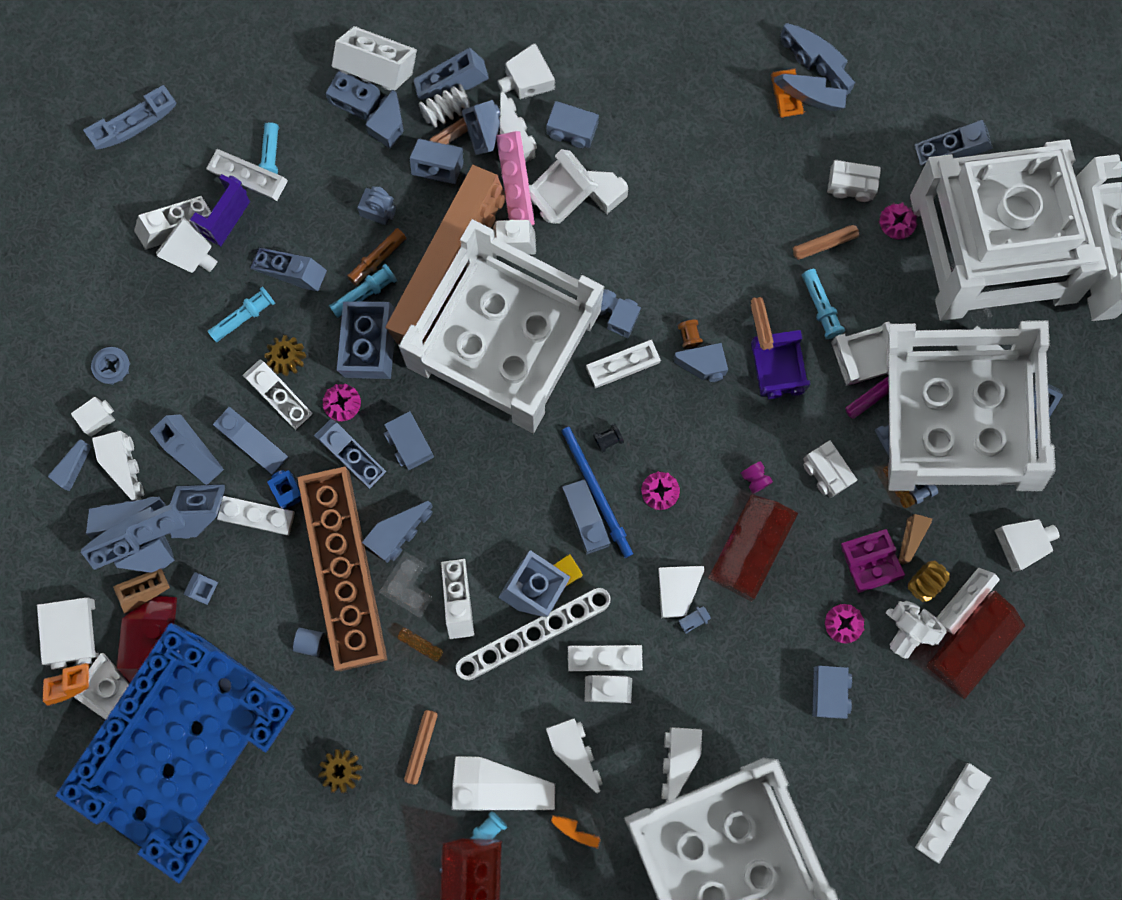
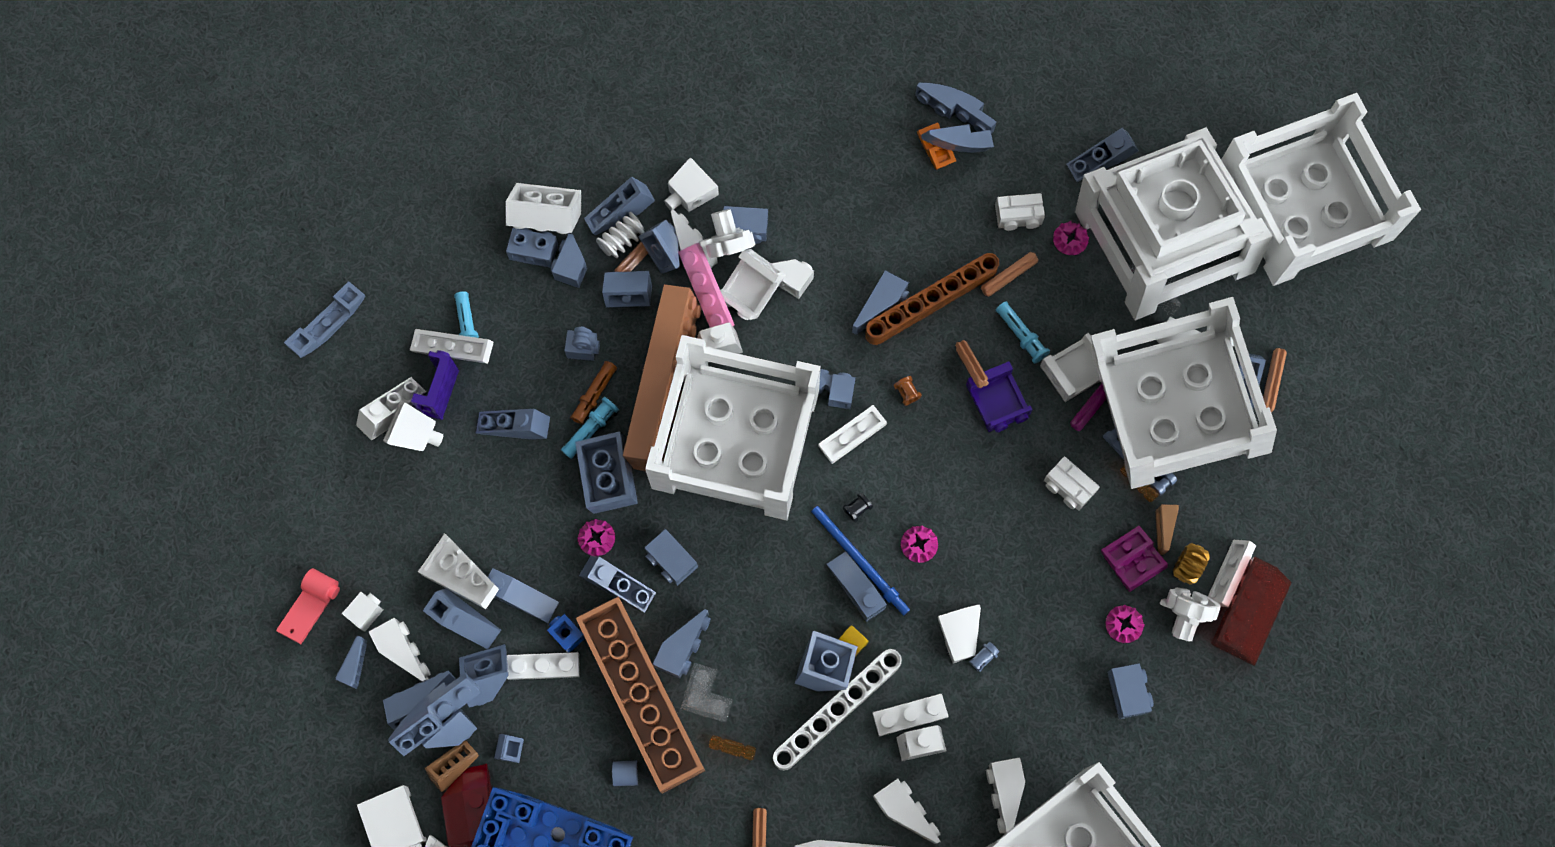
camera: 10 degrees left, 5 degrees down
(45, 396) = (316, 594): none -> coral door
(100, 365) = (355, 560): sand blue gear -> none
(194, 402) = (457, 572): none -> white wing
(250, 308) = (486, 471): medium azure pin -> none
(276, 358) = (527, 514): pearl gold gear -> none
(277, 394) = (533, 544): white slope -> none
(457, 599) = (756, 695): white slope -> none
(549, 134) = (727, 238): none -> white piece
(689, 237) = (886, 295): none -> sand blue slope
(703, 362) = (927, 413): sand blue slope -> none
(748, 240) = (937, 290): none -> dark orange beam
(753, 546) = (1020, 574): clear red slope -> none
(756, 476) = (1004, 507): magenta wheel -> none
(953, 812) = (1273, 775): white plate -> none
(1026, 542) = (1270, 505): white torso -> none
(1066, 415) = (1274, 378): none -> nougat axle

